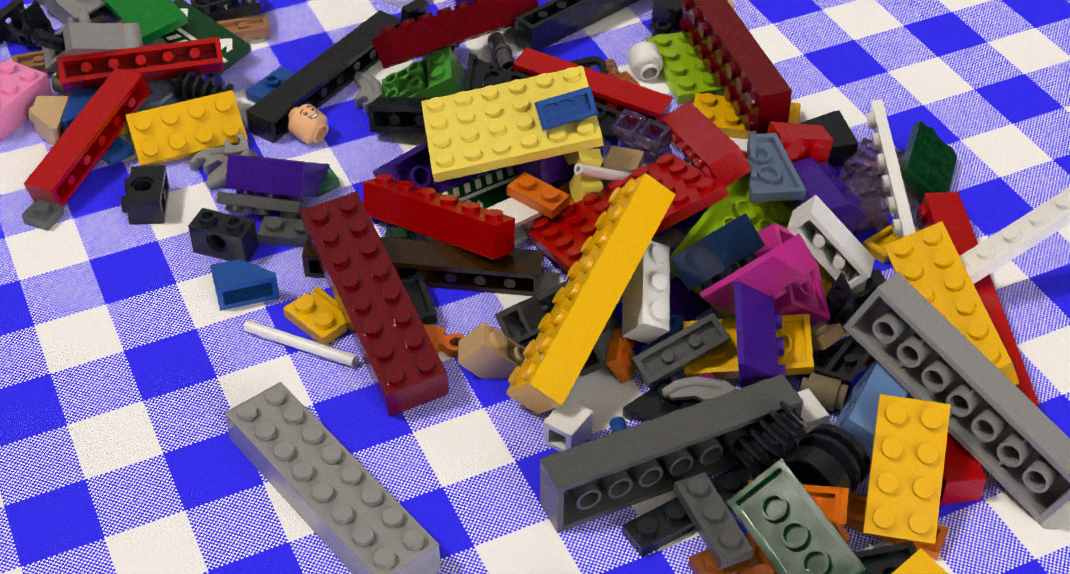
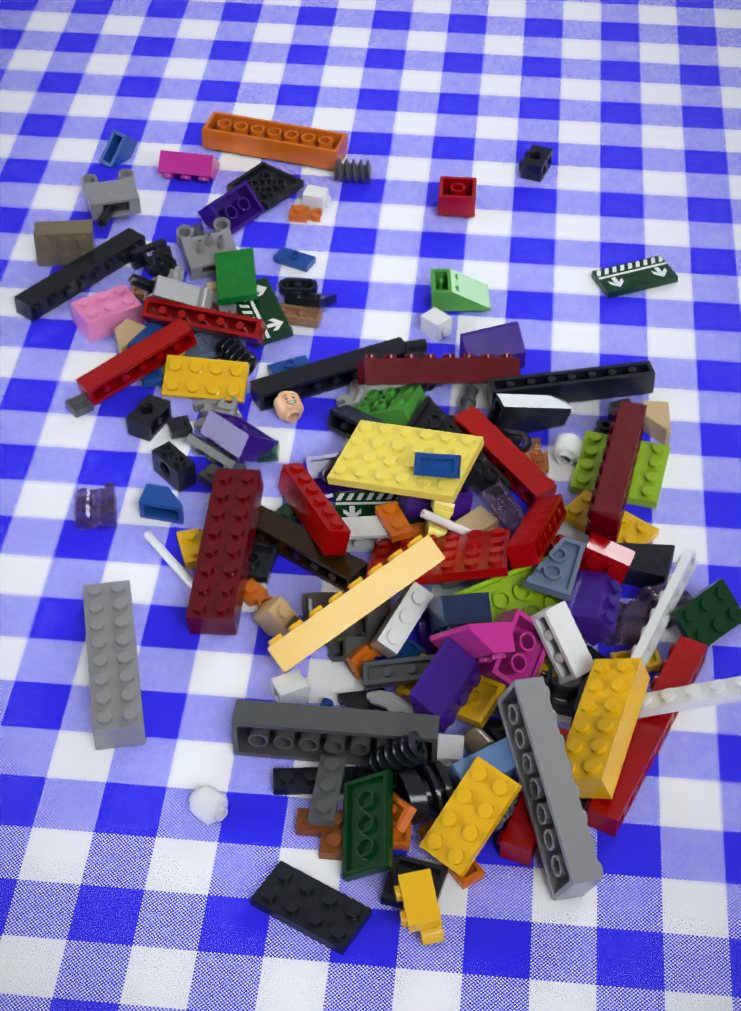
camera: 30 degrees right, 0 degrees up
(160, 319) = (96, 508): none -> clear purple legs
(193, 191) = (179, 426): none -> black plate
(580, 36) = (529, 412): none -> black slope

